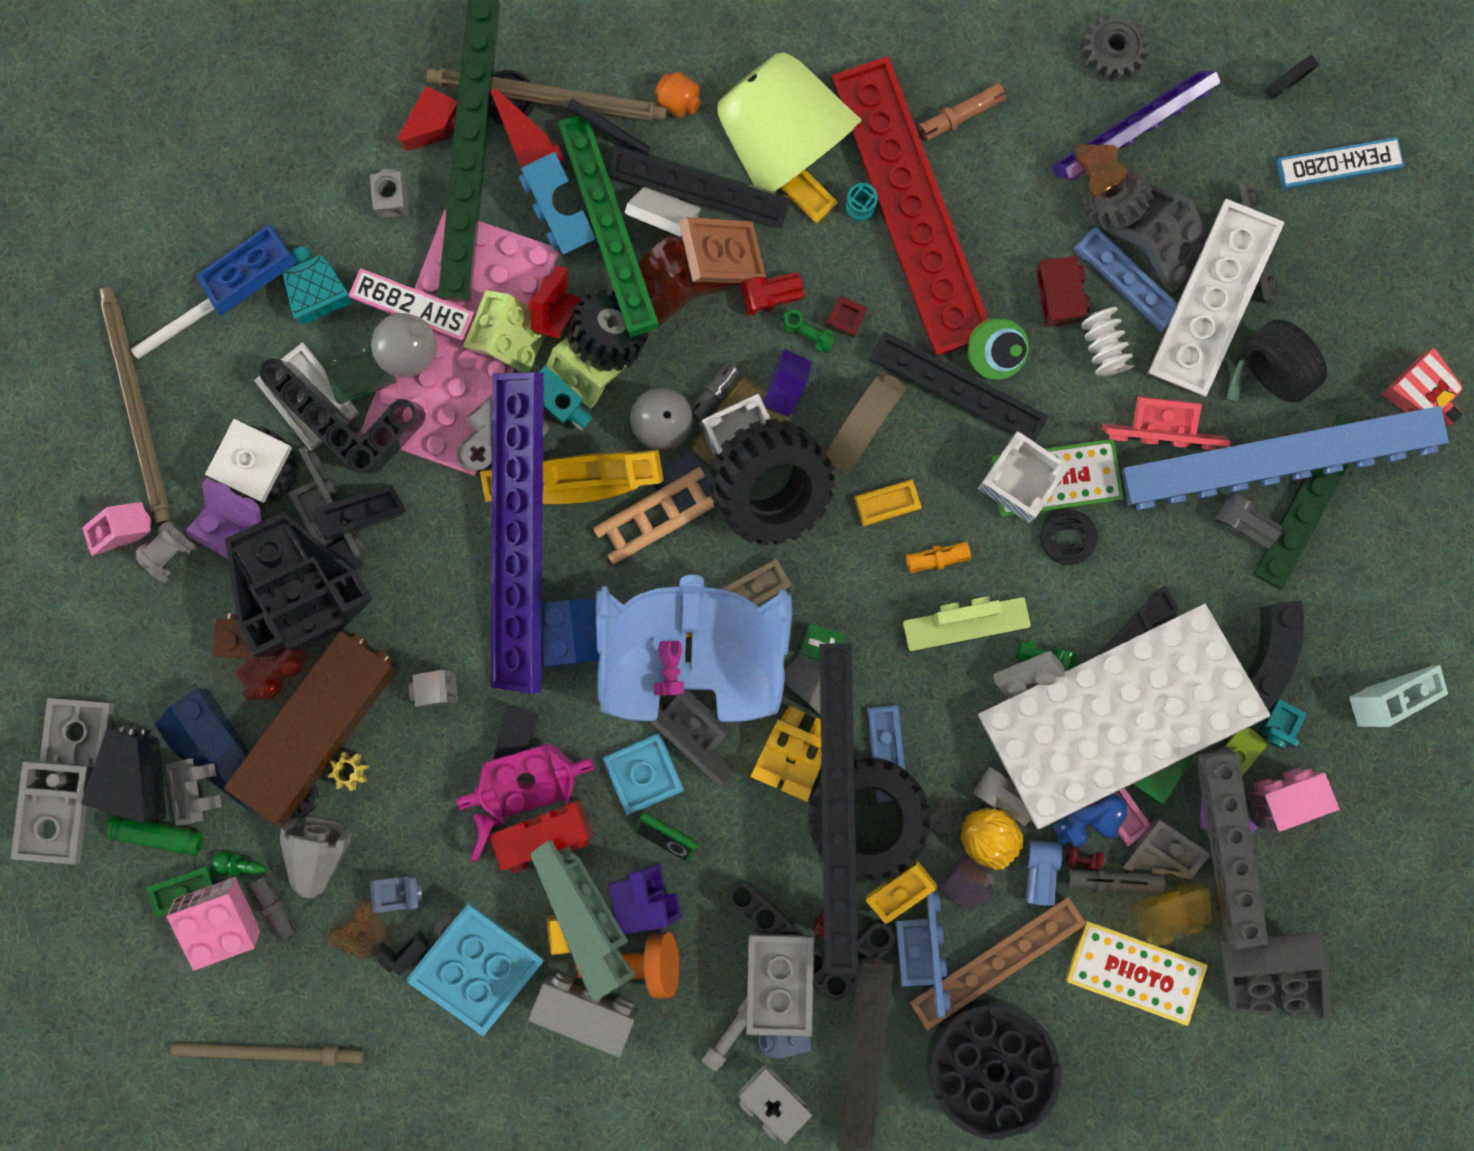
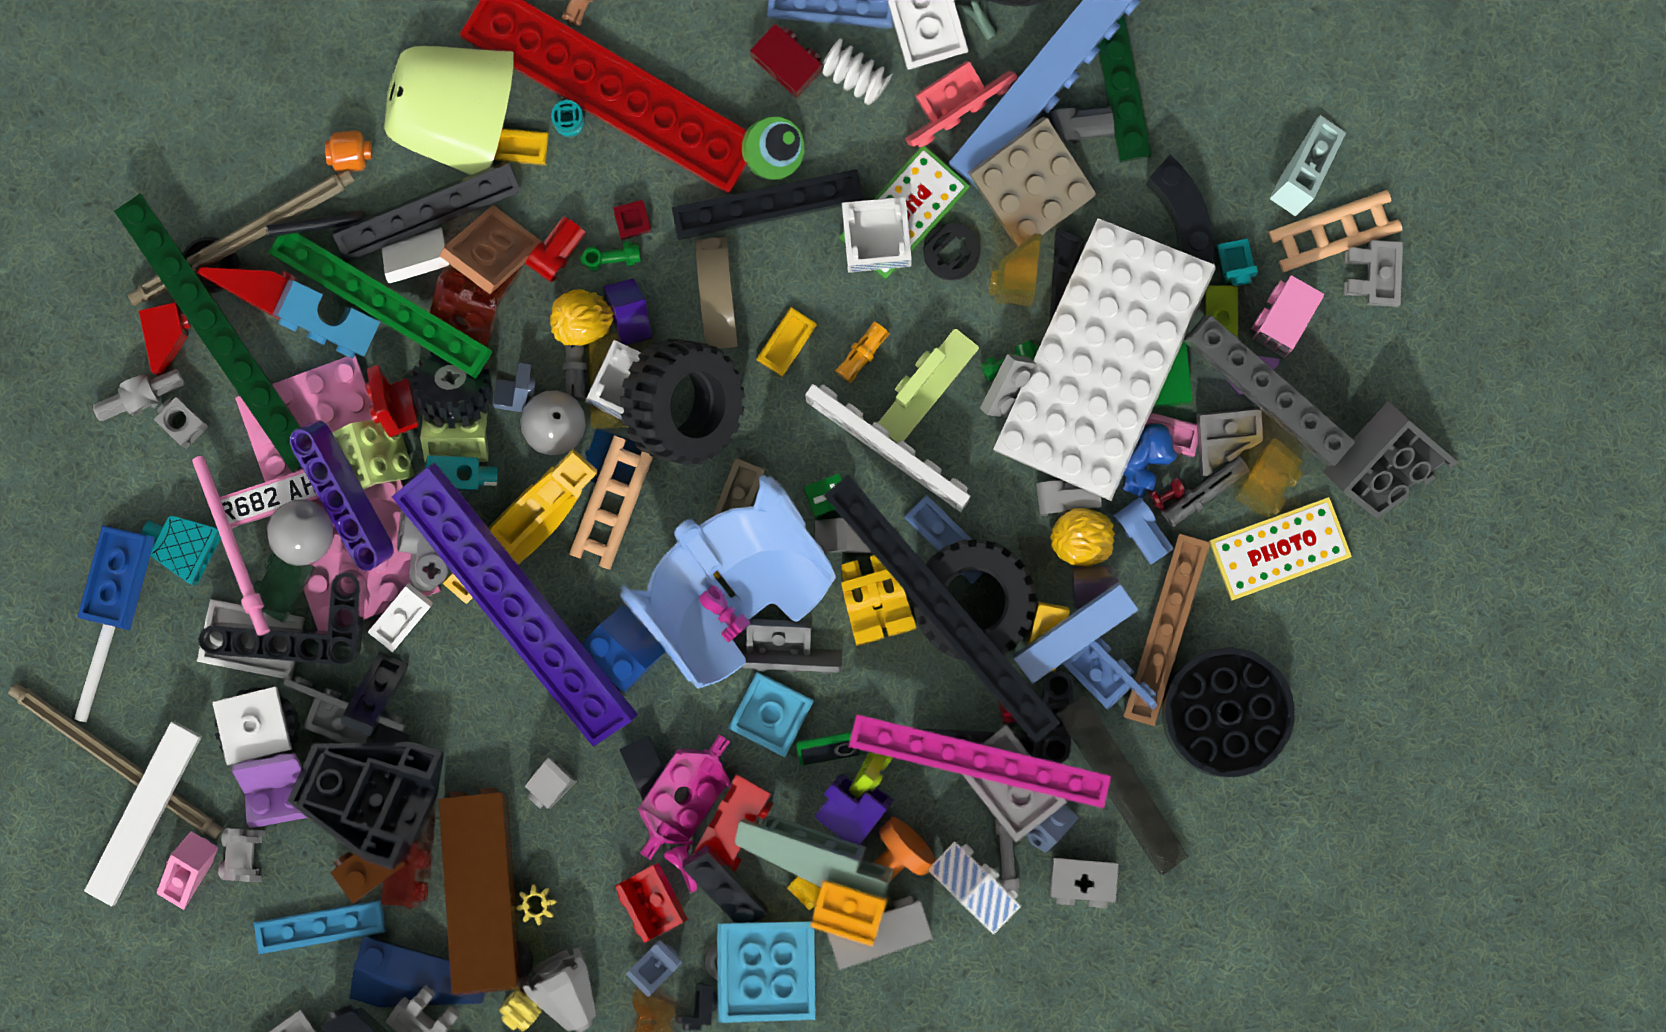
camera: 35 degrees left, 0 degrees up
(118, 459) = (142, 813): none -> white tile
(177, 652) = (319, 927): none -> dark azure tile
(266, 842) = (519, 1011): none -> light yellow gear
(324, 367) = (251, 601): none -> bright pink bar
(376, 149) = (138, 394): none -> light grey axle
(428, 471) = (400, 617): none -> white plate
(434, 842) = (651, 902): none -> red bracket
(457, 342) = (341, 495): none -> dark purple beam
(497, 878) = (724, 886): none -> black plate
(571, 984) = (848, 912): none -> light orange plate
(650, 374) = (513, 395): none -> sand blue bracket
(685, 1042) = (975, 886): none -> container
(690, 878) = (869, 773): none -> lime plate
(747, 357) = (580, 317): none -> yellow hair
(771, 950) = (980, 761): none -> dark pink plate
(902, 658) = (878, 439): none -> white plate
(926, 910) = (1075, 632): none -> medium blue tile
(1107, 596) = (1017, 275): none -> clear yellow slope
(1174, 535) = (1032, 182): none -> dark tan plate
(1389, 779) = (1353, 239): none -> light nougat bar
(1391, 826) = (1383, 274): none -> light grey plate

